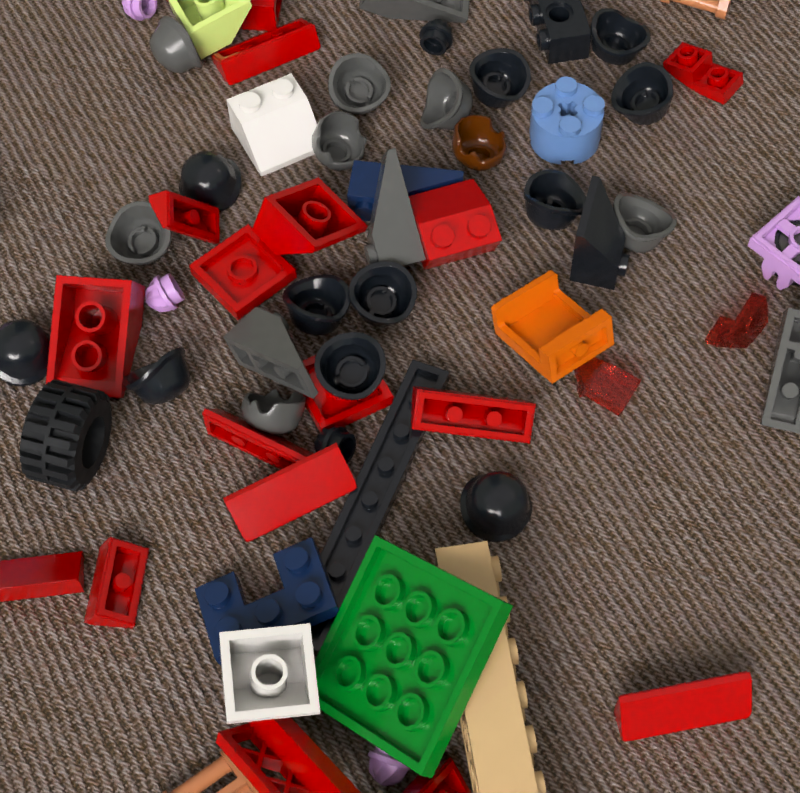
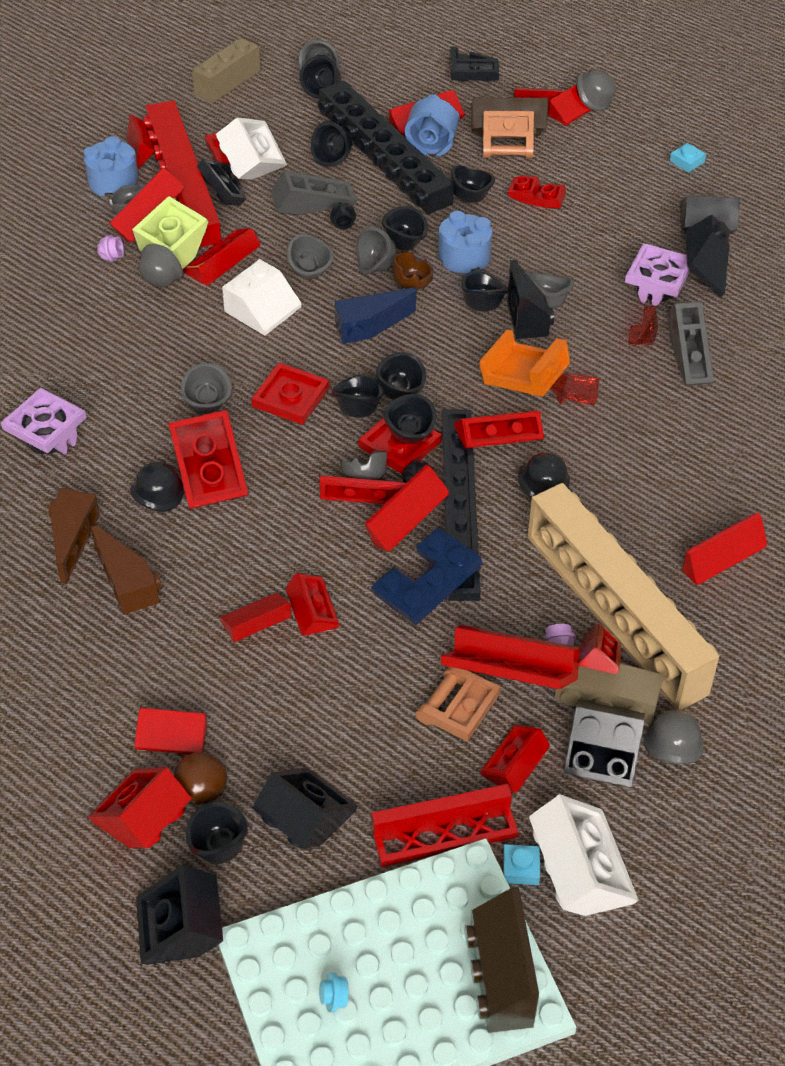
camera: 25 degrees left, 10 degrees down
(65, 435) = (233, 517): black tyre -> none
(160, 380) = (274, 473): black helmet -> none
(164, 293) = (243, 421): lavender plate -> none
(186, 216) = (234, 365): red slope -> none
(211, 179) = (232, 346): black helmet -> none
(266, 347) = (347, 429): dark grey slope -> none
(268, 673) = (458, 603): white slope -> none
(305, 219) = (323, 344): red slope -> none
(338, 141) = (312, 295): dark grey hair -> none
(392, 224) = (382, 325): dark grey slope -> none
(406, 654) = (543, 563): green plate -> none
(454, 223) = (423, 322): red slope -> none
(643, 93) = (508, 211): black helmet -> none

